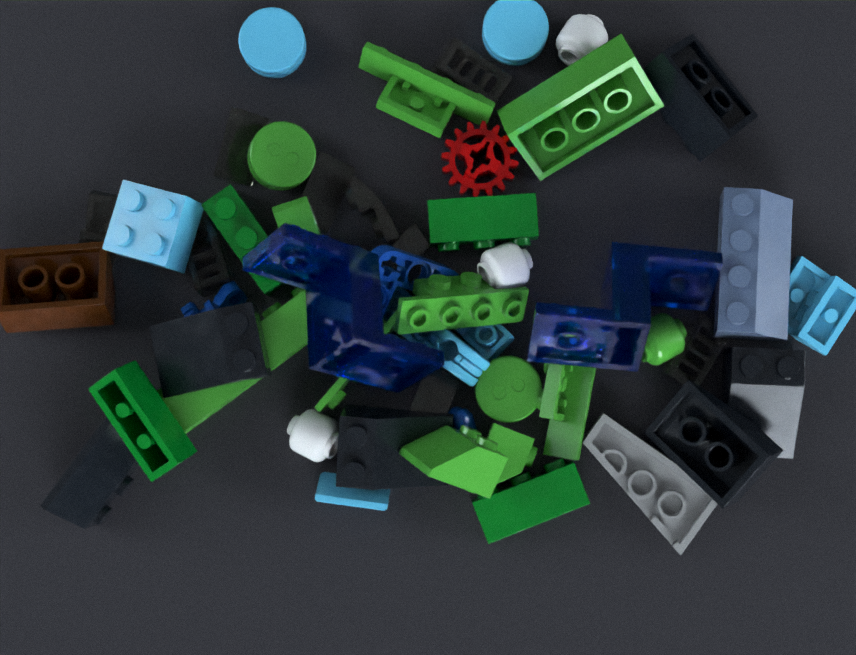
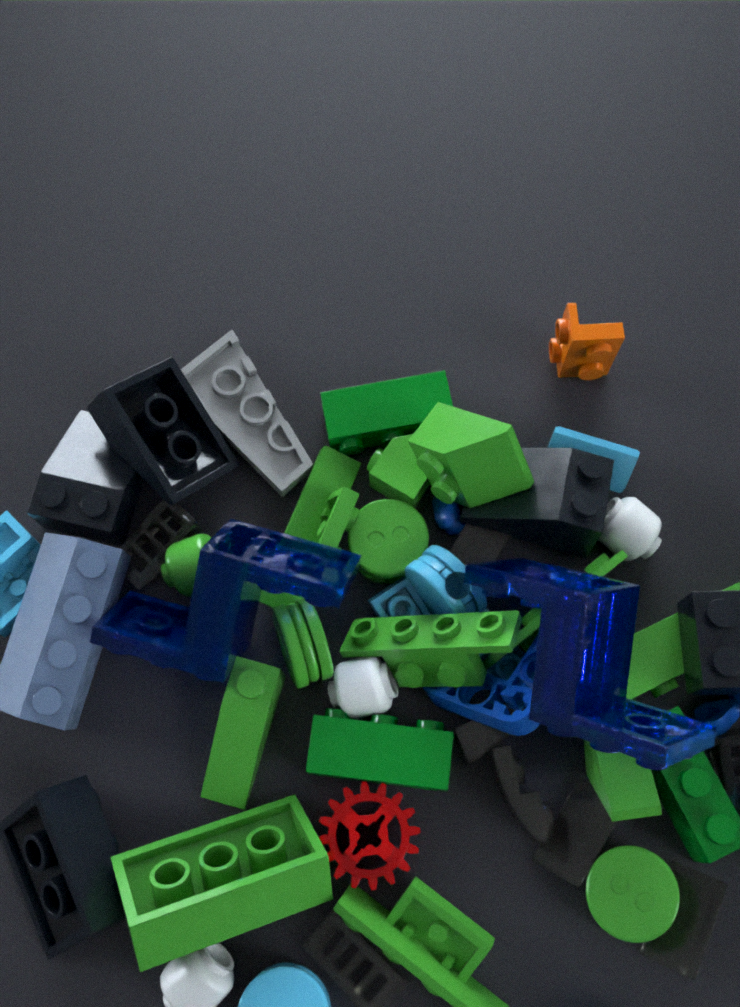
camera: 165 degrees left, 15 degrees down
(367, 584) = (584, 348): none -> orange bracket
(556, 283) = (302, 643): none -> bright green head
(590, 217) = (242, 731): none -> bright green slope

